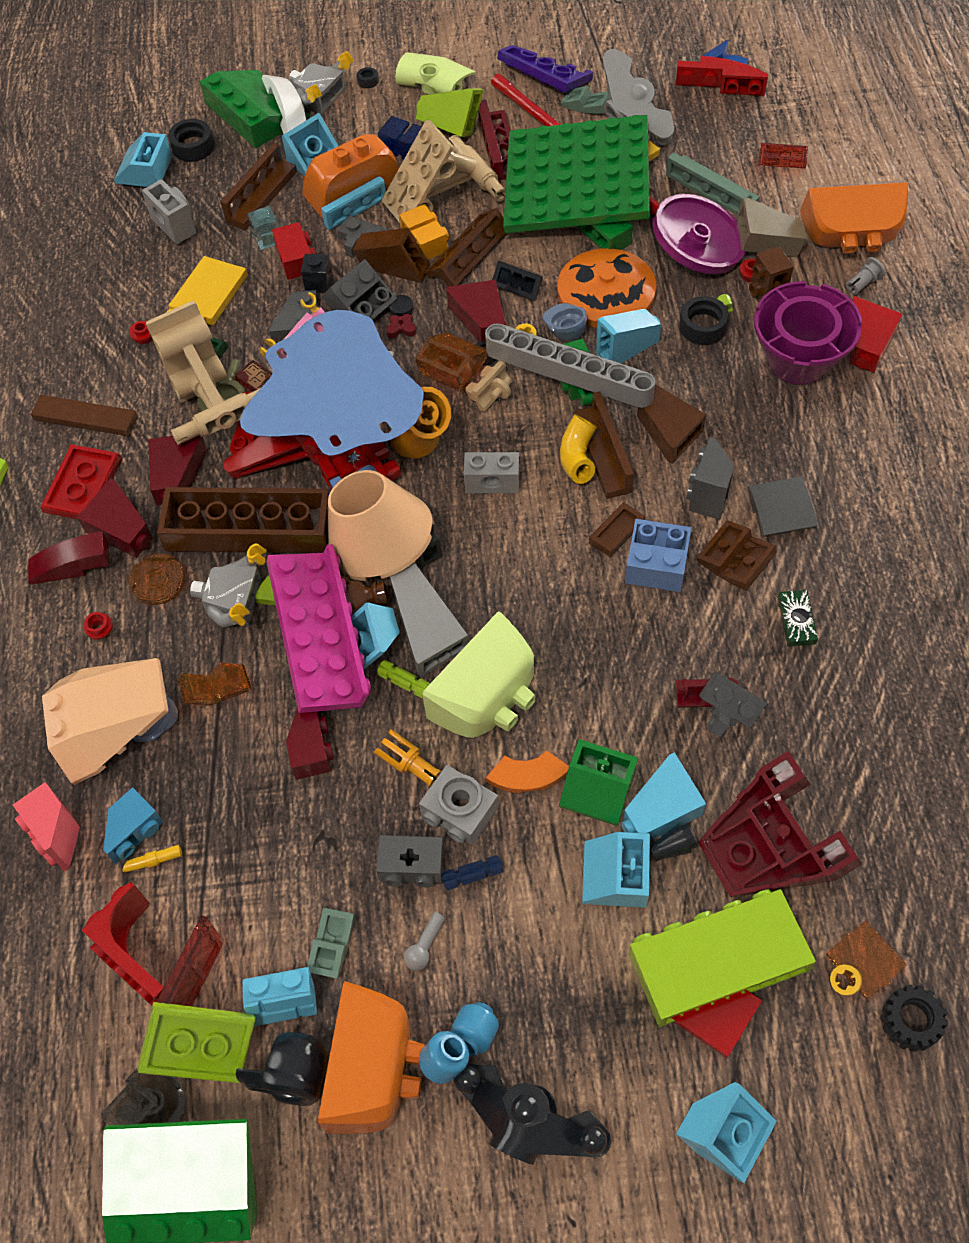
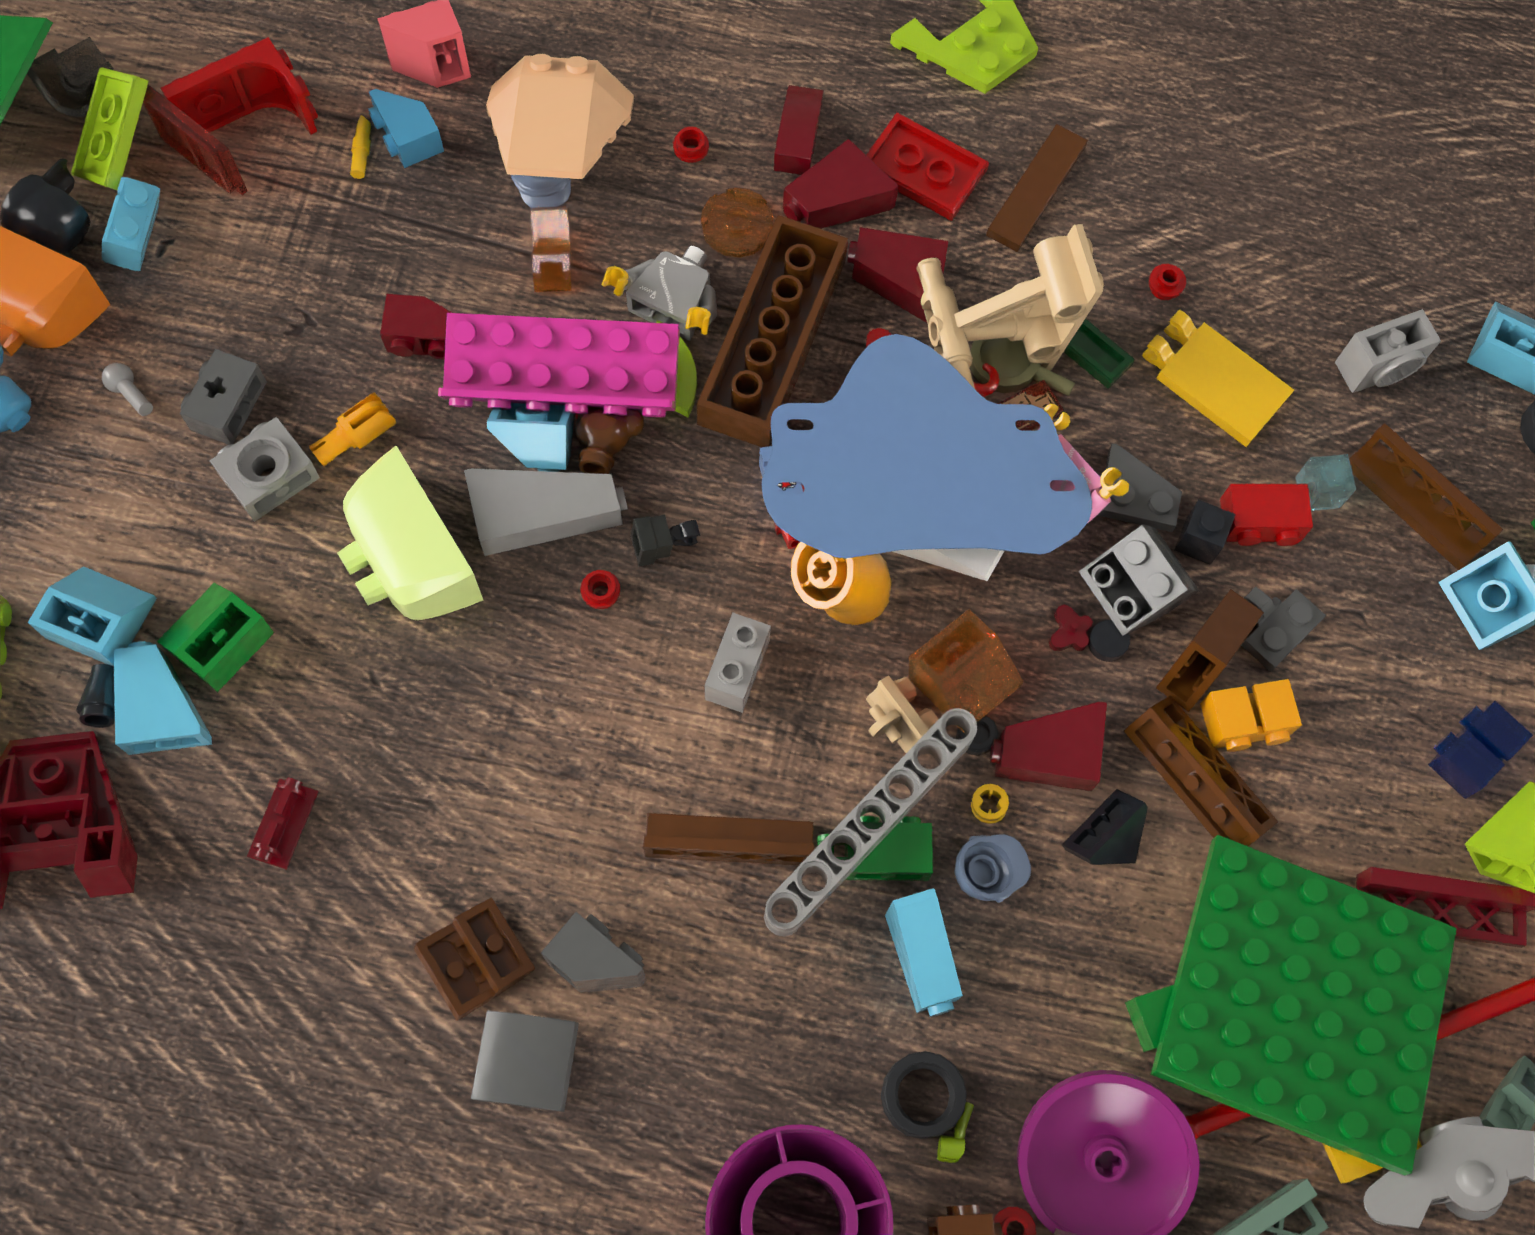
camera: 100 degrees right, 10 degrees up
(331, 943) = (173, 295): sand green slope -> none
(346, 169) = (1409, 640): orange hips -> none
(353, 203) = (1348, 629): medium azure tile -> none
(376, 525) = (682, 502): light nougat cone -> none
(402, 678) = (470, 458): lime axle -> none
(437, 166) = (1366, 749): tan plate -> none
(466, 561) = (596, 579): none -> red plate
(472, 872) = (181, 462): dark blue axle -> none
(528, 775) = (272, 565): orange tile -> none
(573, 450) = (731, 790): yellow cylinder -> none
(607, 283) = (1051, 969): orange dish -> none
(615, 530) = (585, 807): reddish brown tile -> none
(657, 555) = (505, 836): medium blue slope -> none
(671, 423) = (736, 953): reddish brown slope -> none
(730, 704) = (239, 837): dark grey hinge -> none
(797, 618) = (338, 999): tile -> none

